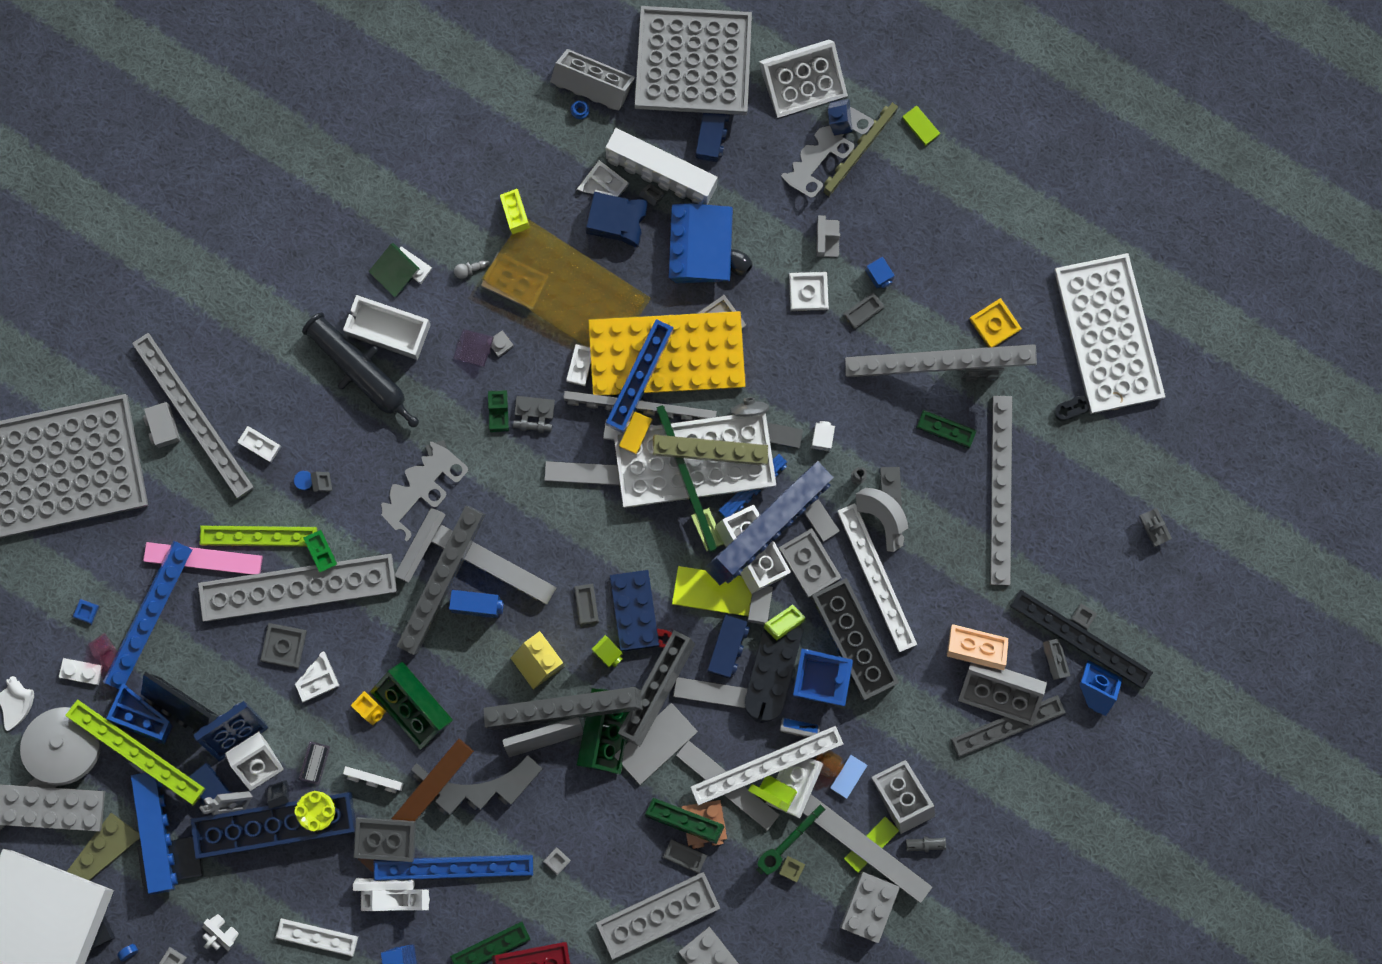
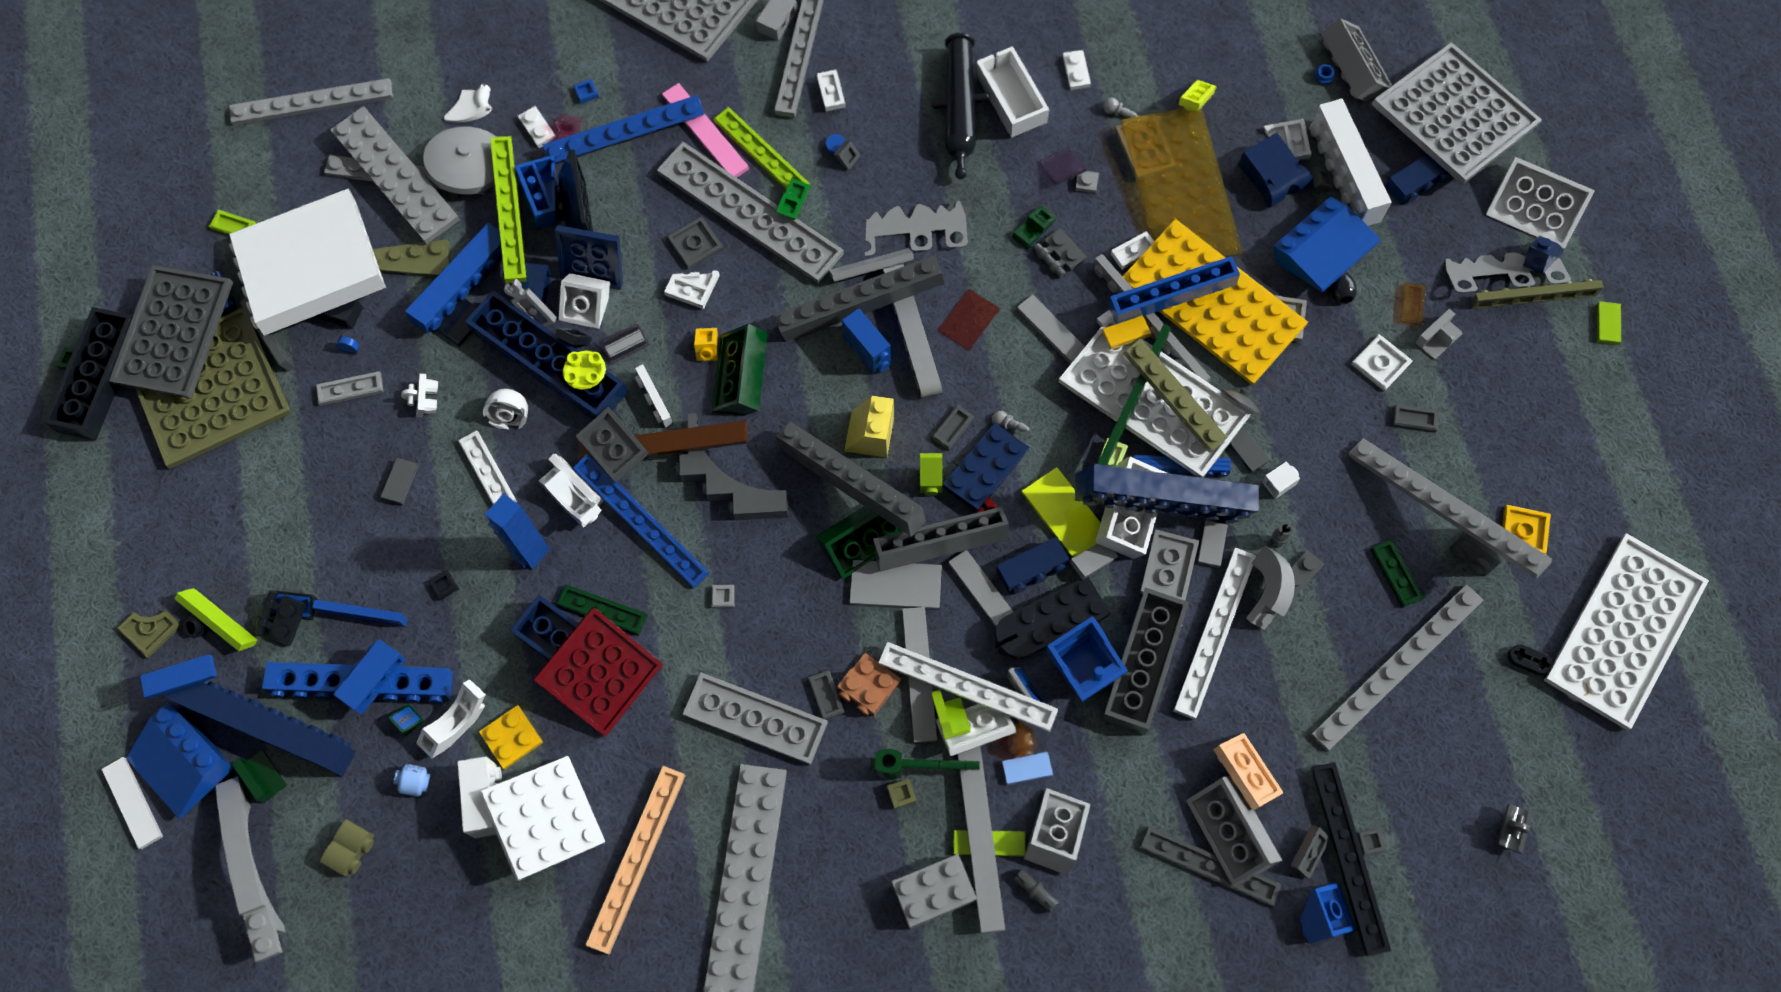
camera: 55 degrees right, 10 degrees down
(283, 886) = (503, 405): none -> white cylinder
(394, 270) = (1060, 59): dark green tile -> none
(521, 518) = (969, 319): none -> clear red piece
(543, 737) = (812, 488): light grey tile -> none
(611, 568) = (1006, 421): none -> light grey bar
(684, 820) = (854, 663): dark green tile -> none
(784, 622) = (1099, 591): lime tile -> none
(790, 229) = (1412, 303): none -> clear orange tile
(880, 273) = (1459, 400): blue brick -> none

